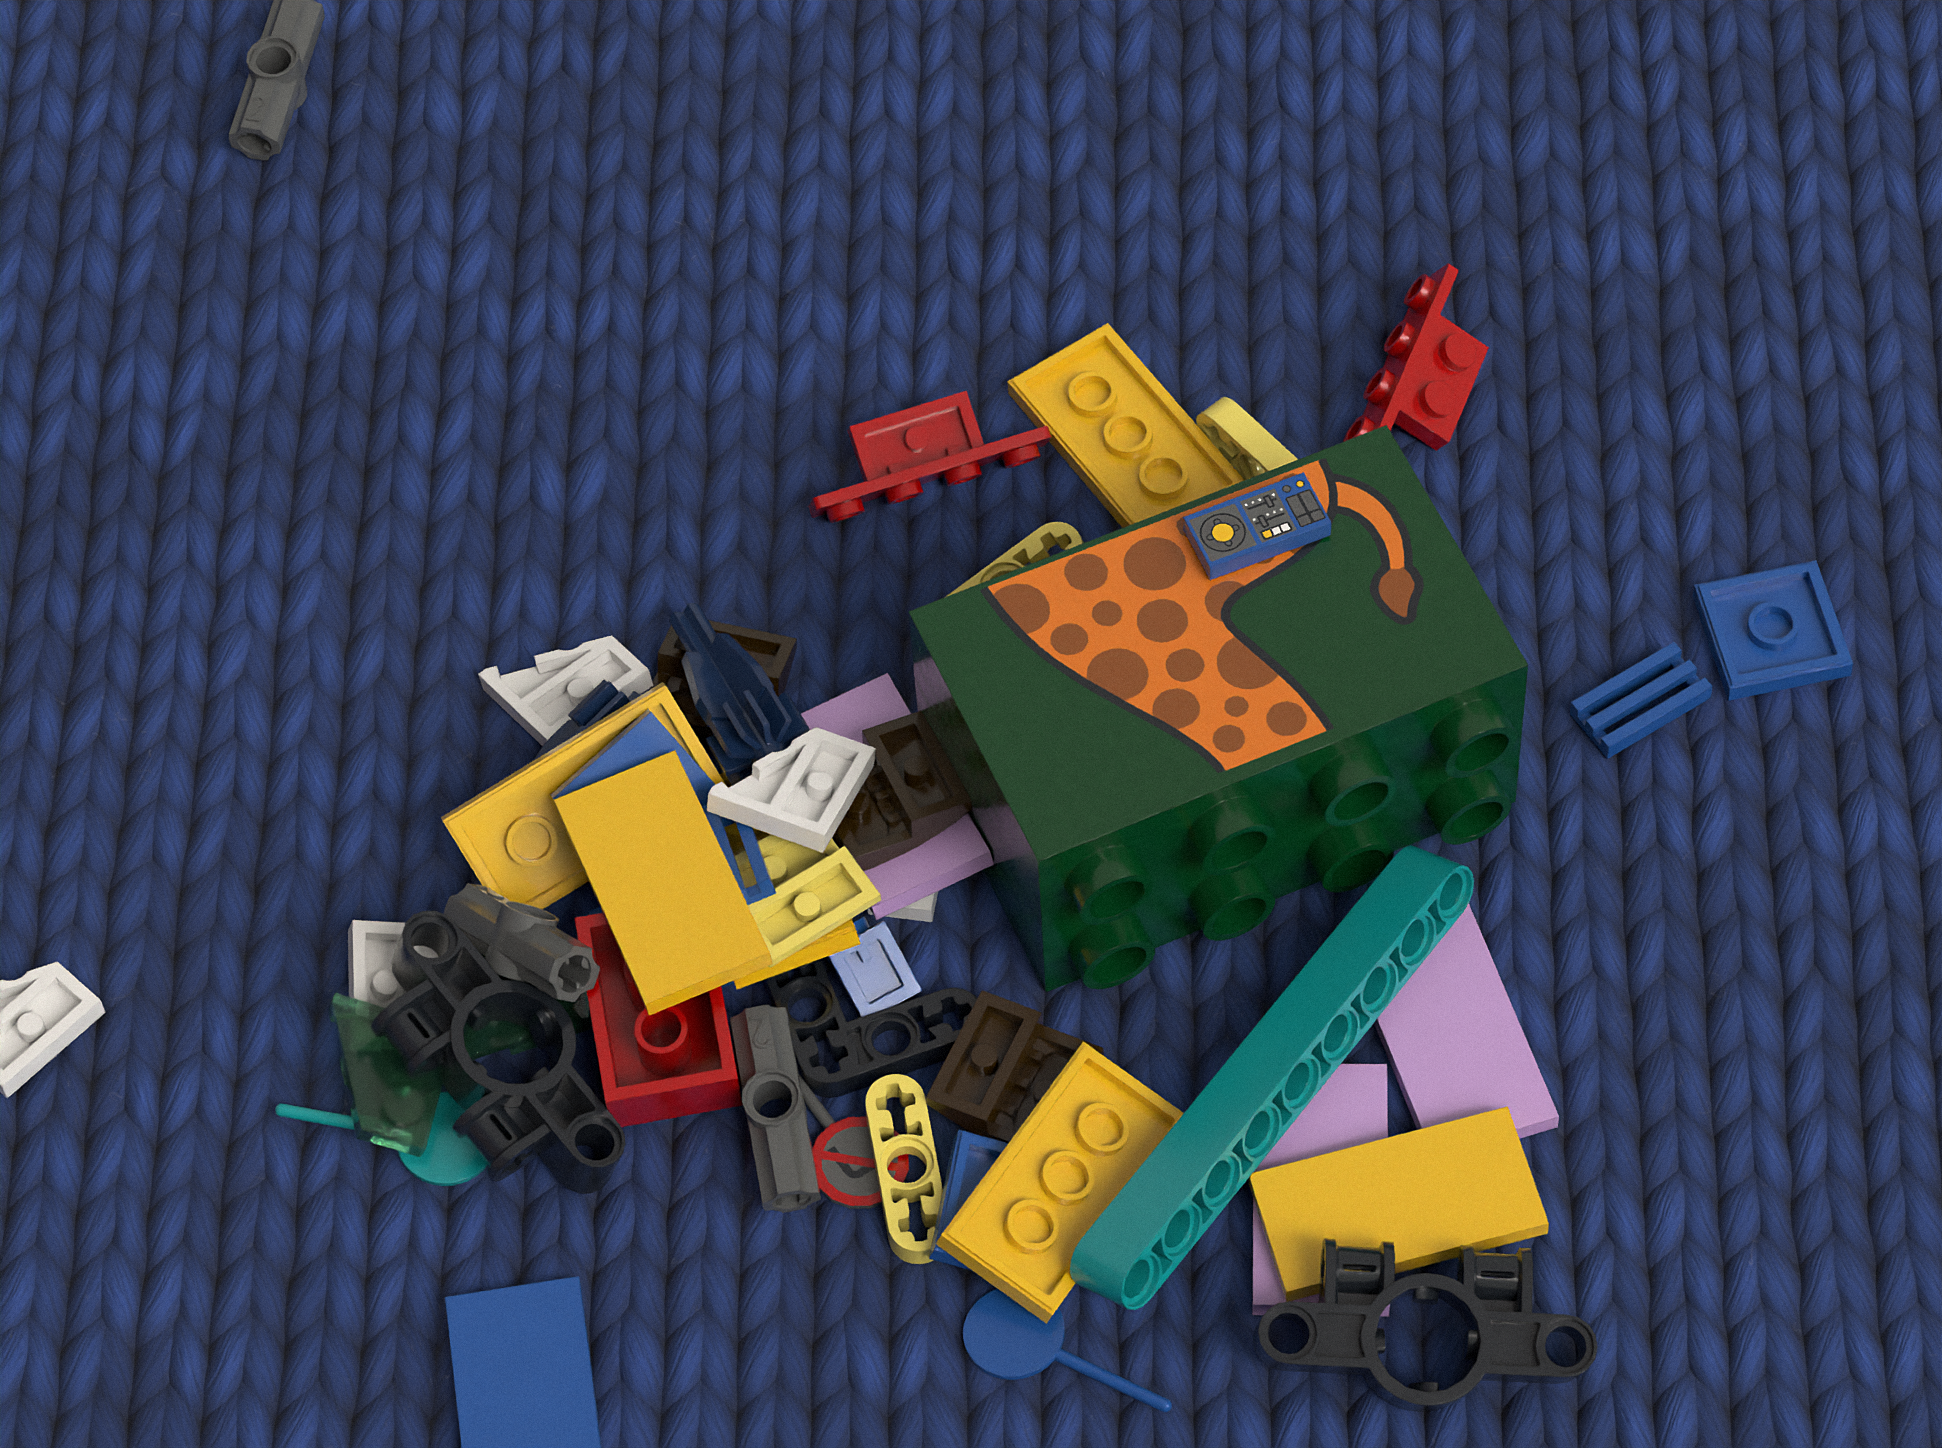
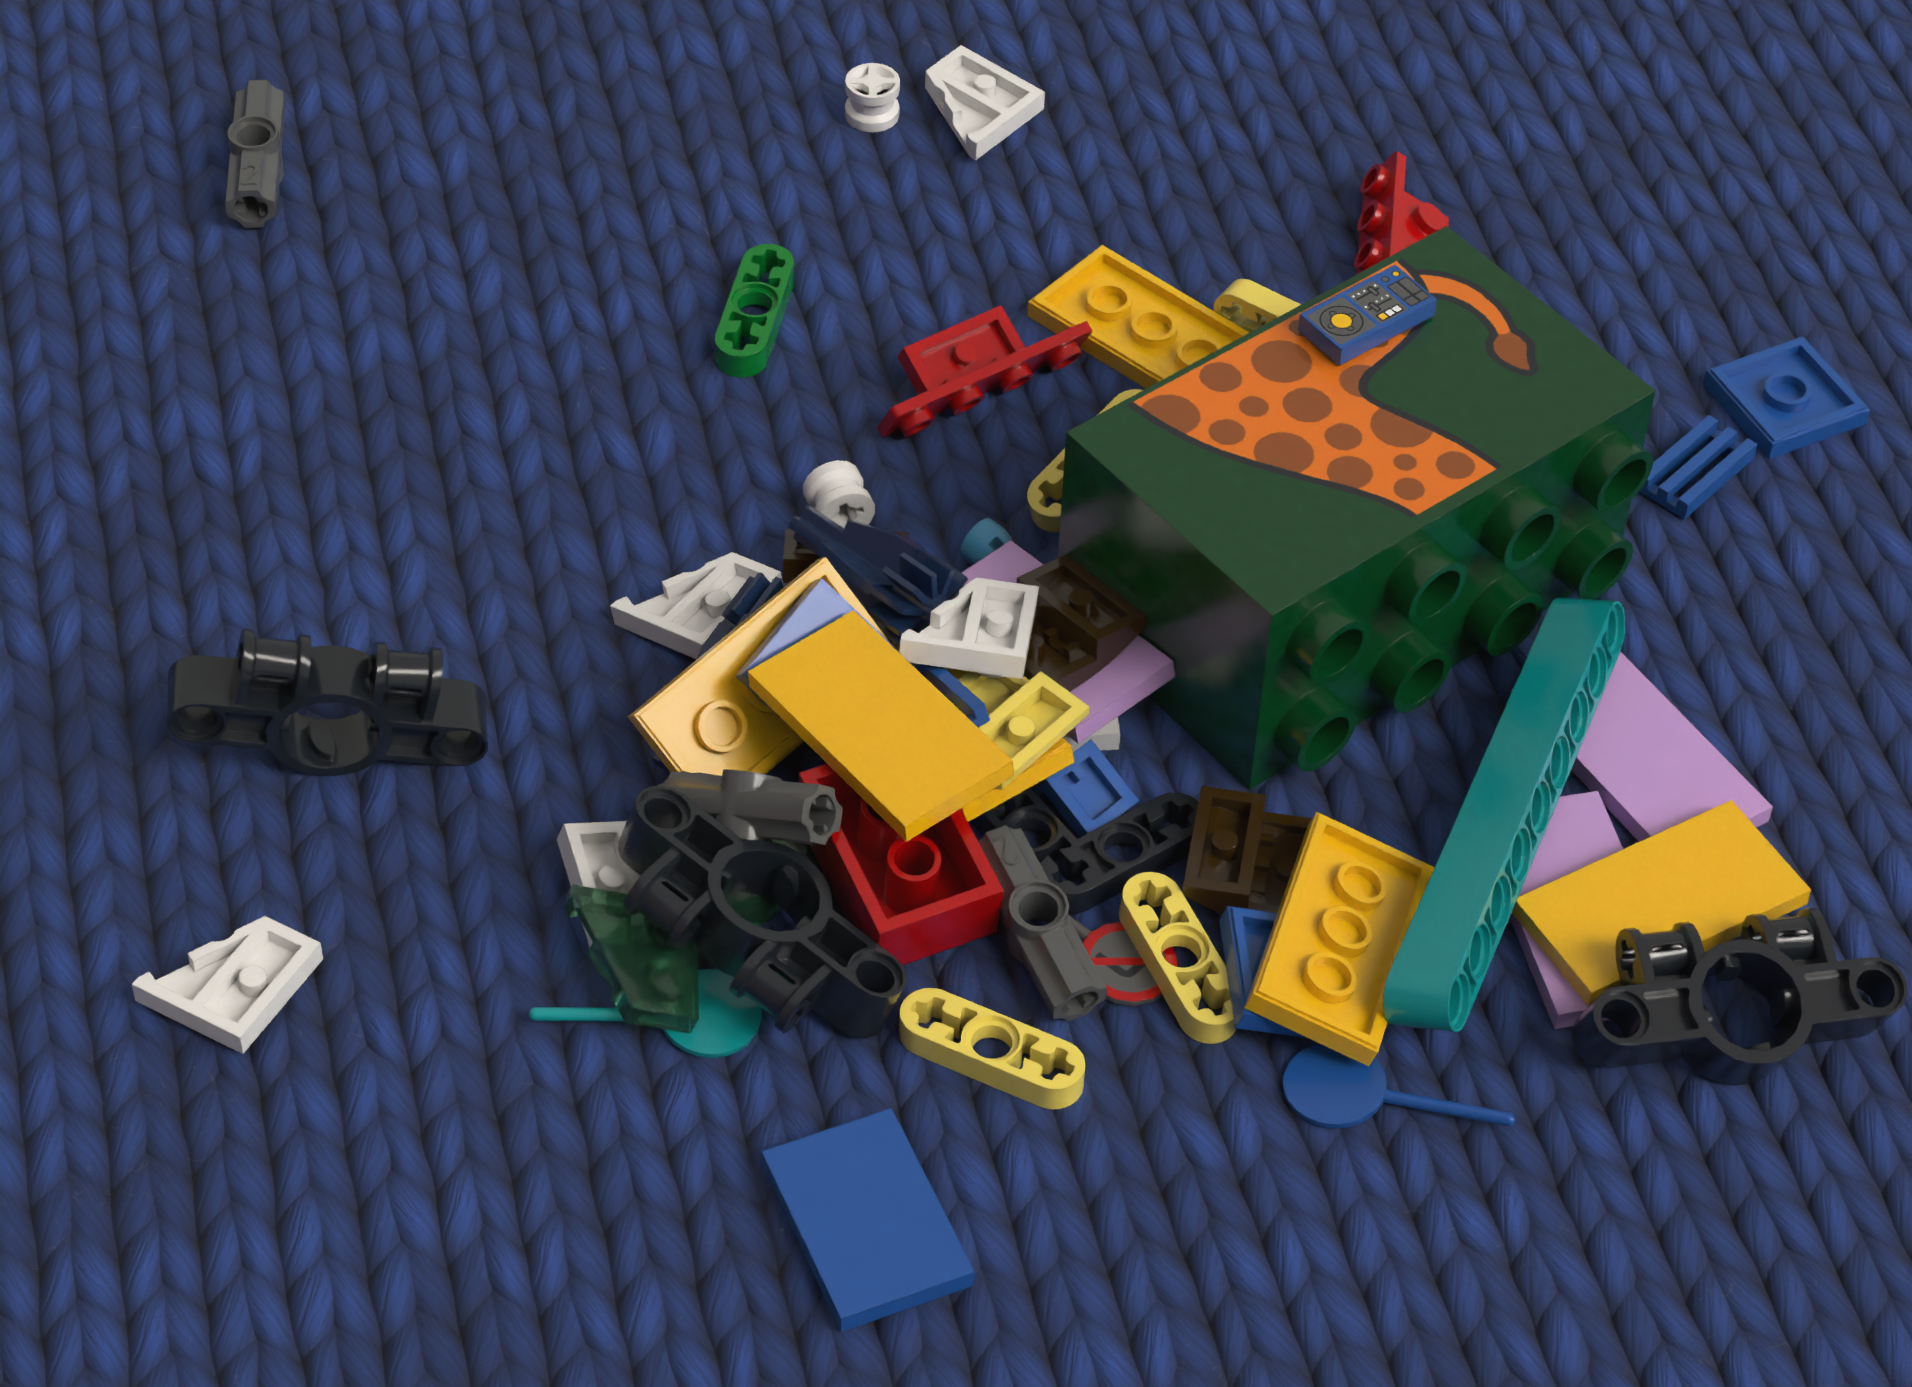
camera: 20 degrees left, 10 degrees down
(168, 751) = (255, 697): none -> black piece
(705, 1257) = (1001, 1073): none -> light yellow beam
(730, 368) = (759, 328): none -> green beam
(736, 589) = (839, 493): none -> white wheel
(867, 664) = (983, 540): none -> dark azure hinge
(921, 83) = (872, 97): none -> white wheel
(1039, 119) = (980, 99): none -> white wing

